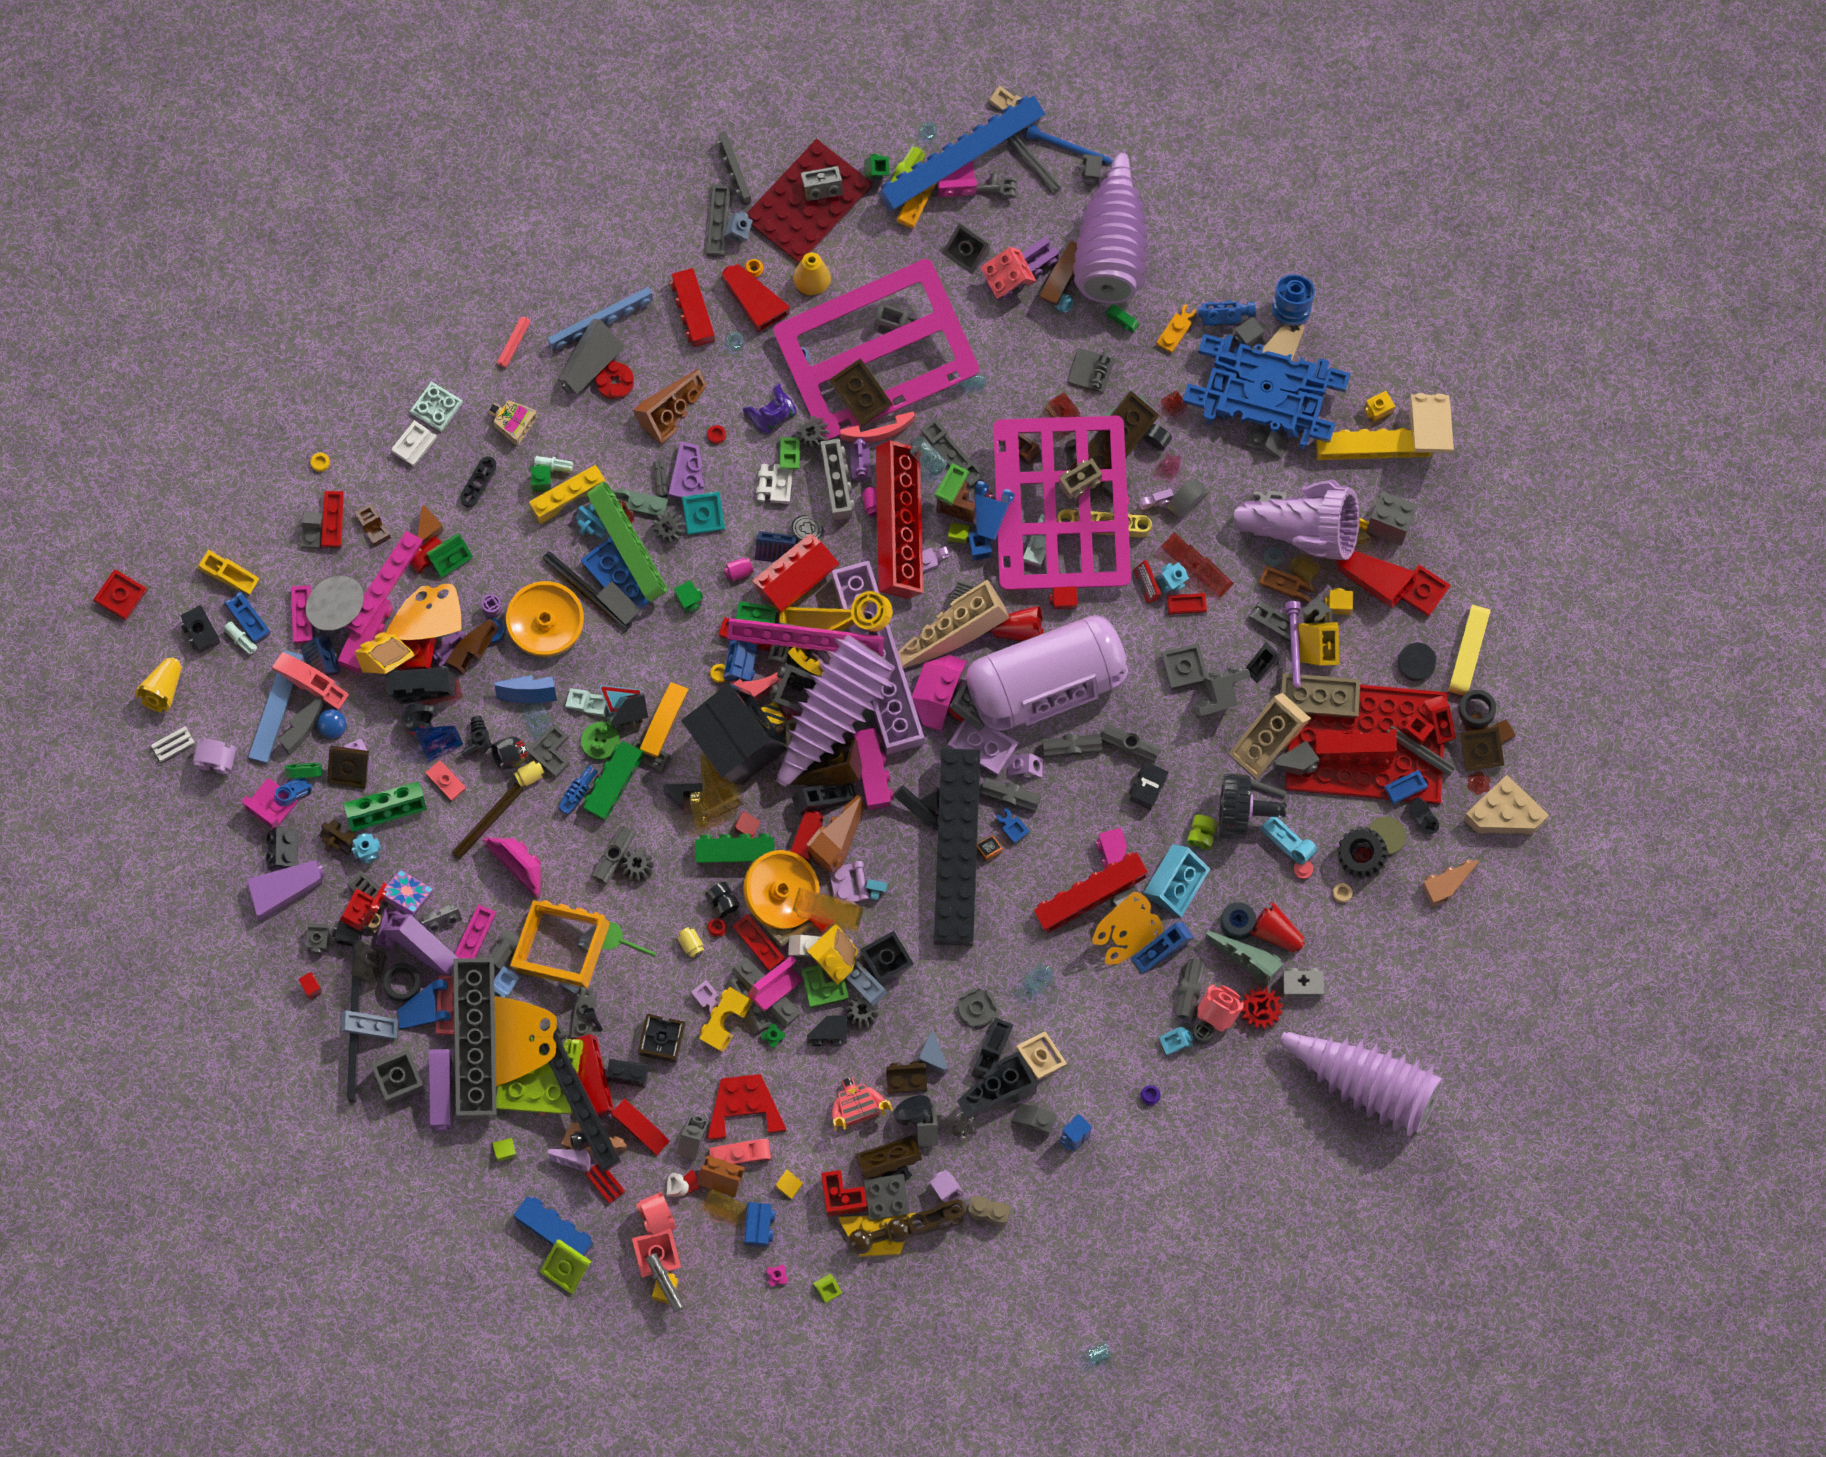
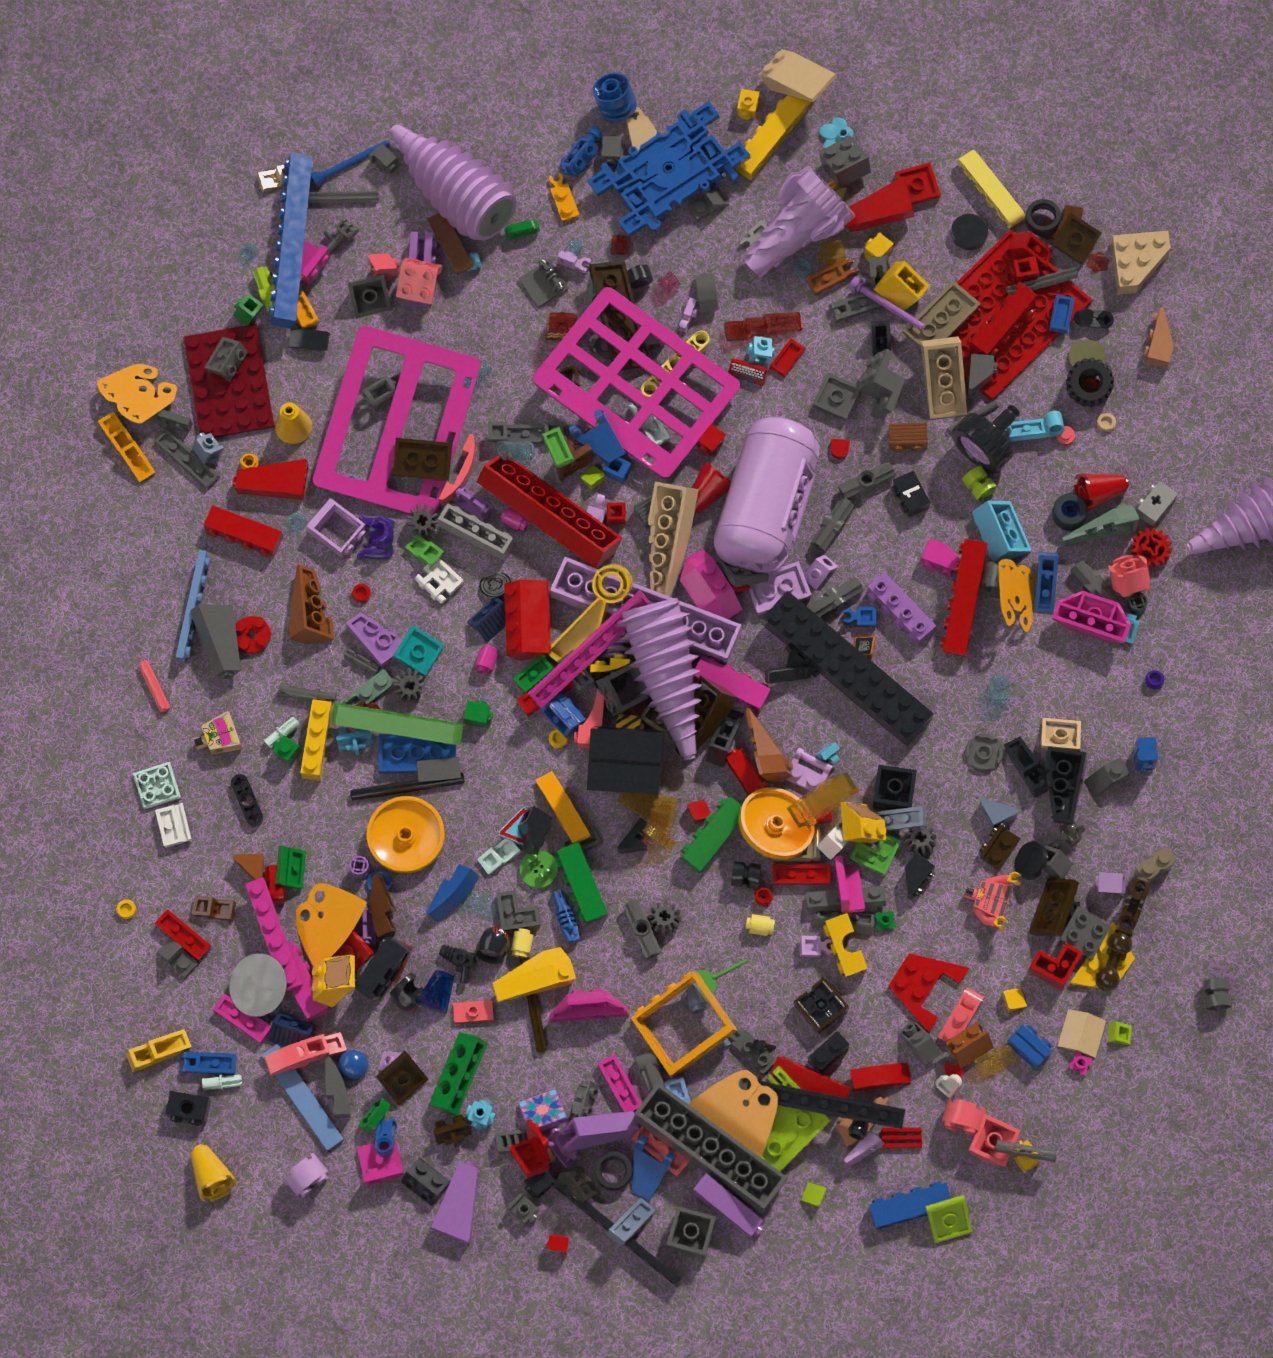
camera: 45 degrees left, 0 degrees up
(120, 594) = (105, 1149): red plate -> none
(168, 738) = (268, 1185): white tile -> none
(514, 805) = (541, 973): none -> yellow wedge
(599, 458) = (306, 694): none -> dark grey pin
(690, 168) = (126, 446): none -> light orange slope
(731, 134) = (128, 395): none -> light orange piece
(752, 356) = (321, 518): none -> lavender window
(804, 1258) = (1081, 1033): none -> tan slope
(892, 232) = (309, 339): none -> black slope
(921, 1339) = (1217, 993): none -> dark grey wheel
(942, 573) = (616, 513): none -> red slope
(999, 237) = (383, 264): none -> coral slope
(1044, 851) = (901, 609): none -> medium lavender brick
(1079, 479) = (633, 346): dark tan brick -> none
(1126, 374) = (570, 260): none -> lavender plate
(1142, 369) = (574, 246): none -> clear light blue plate
(1143, 702) = (839, 448): none -> red tile
(1160, 1003) = (1093, 617): none -> dark pink wedge
(1196, 746) = (908, 436): none -> dark orange brick
(1413, 490) = (833, 131): none -> medium azure plate

